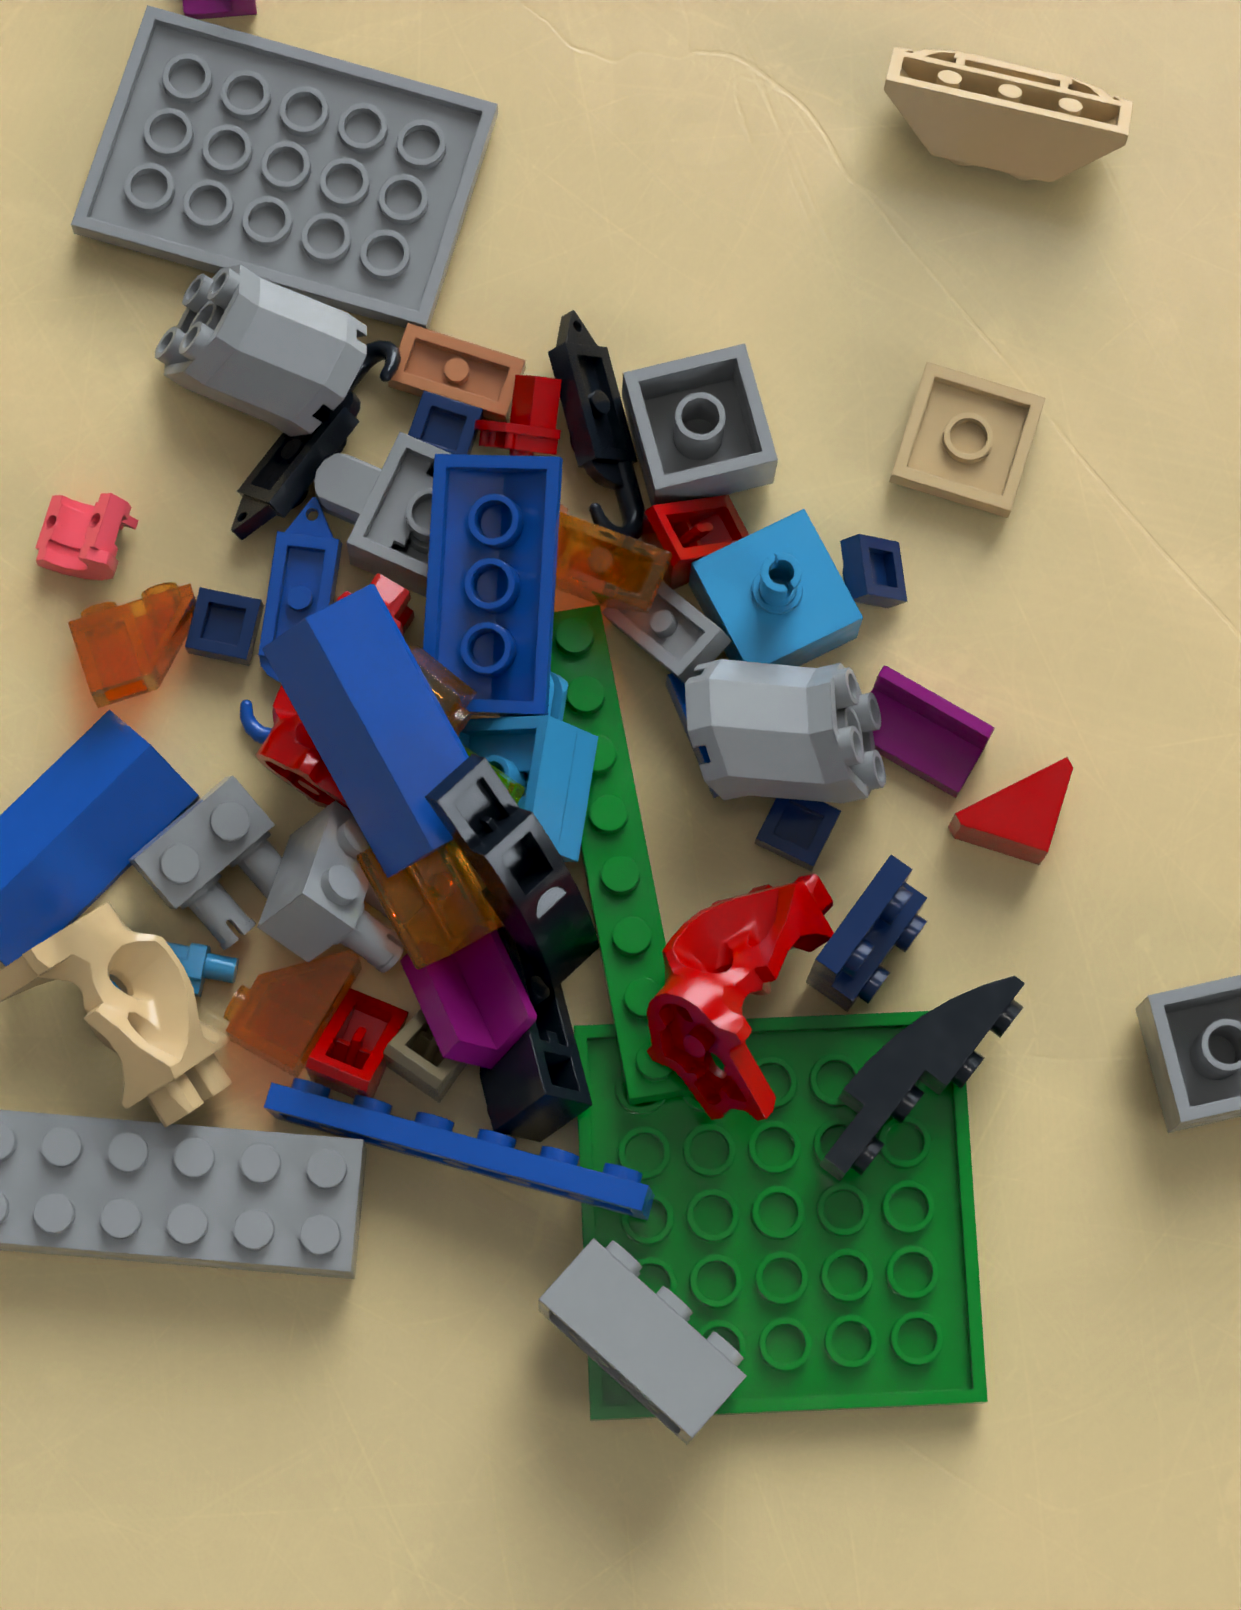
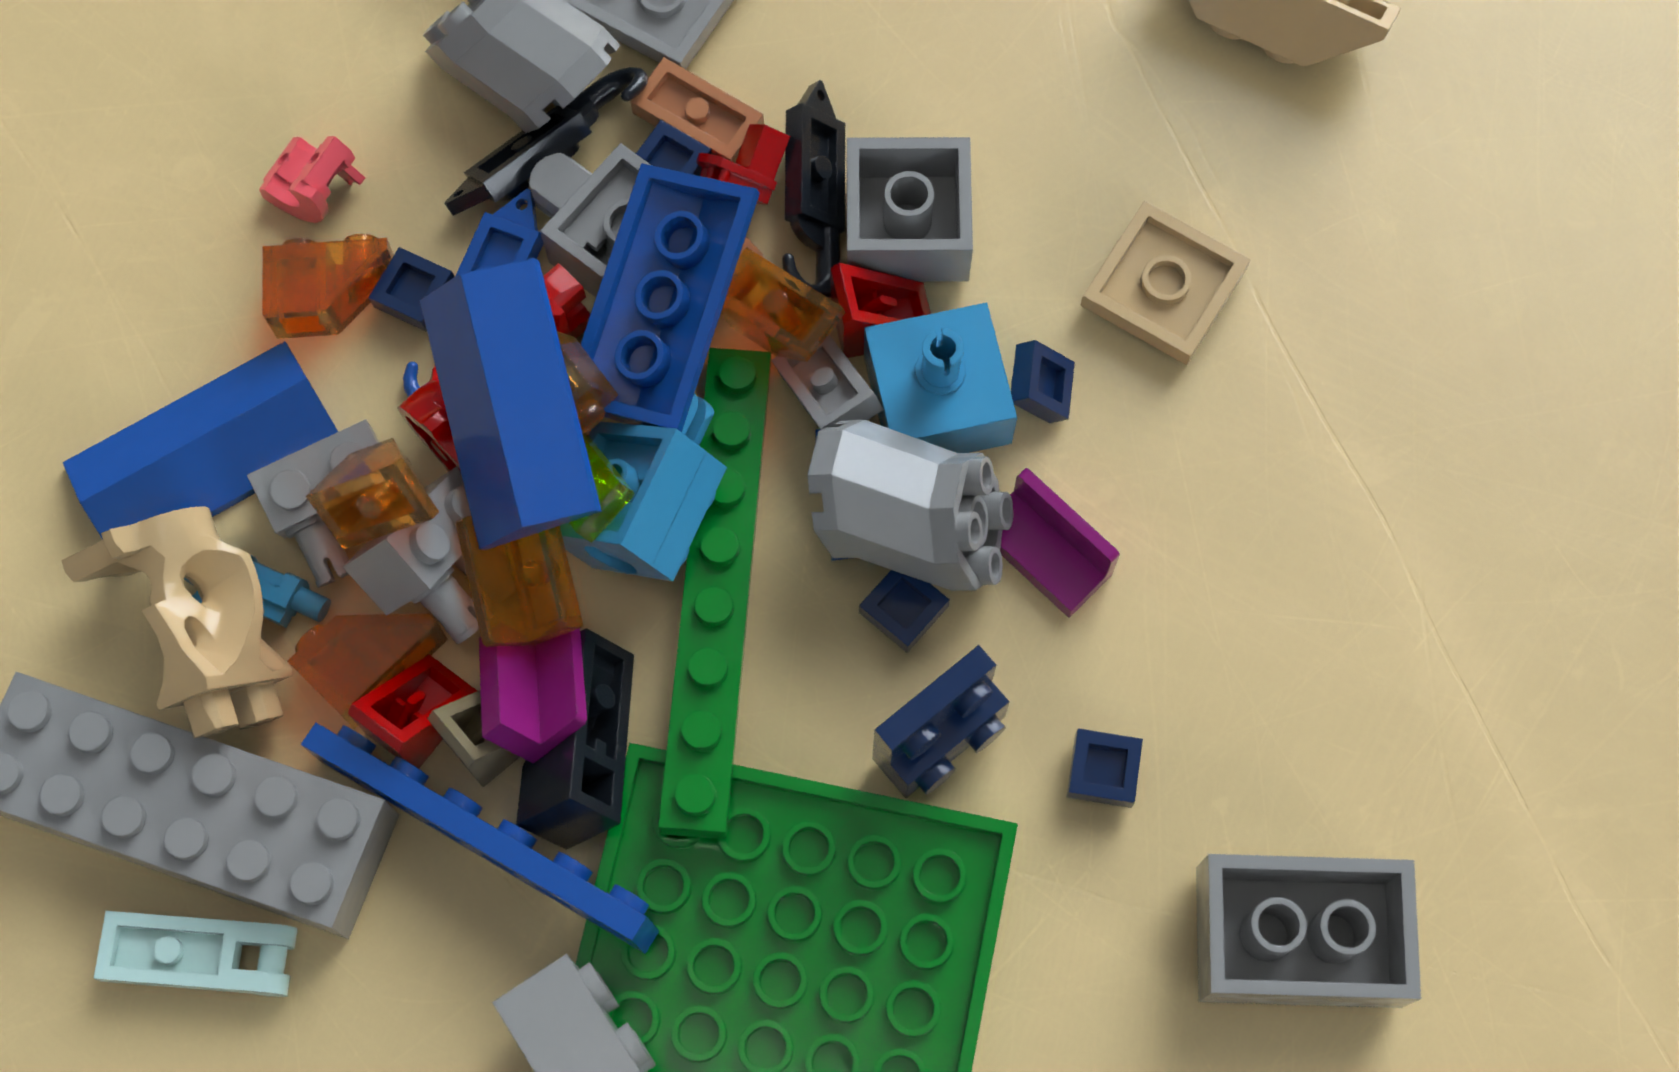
camera: 20 degrees right, 5 degrees down
(215, 1329) = (193, 953): none -> light aqua plate
(274, 851) = (372, 495): none -> clear orange slope
(520, 869) = (602, 568): black slope -> none
(708, 974) = (767, 716): red hips -> none
(932, 1050) = (976, 852): black slope -> none
(1019, 817) = (1122, 647): red slope -> none
(1028, 936) = (1104, 768): none -> dark blue plate

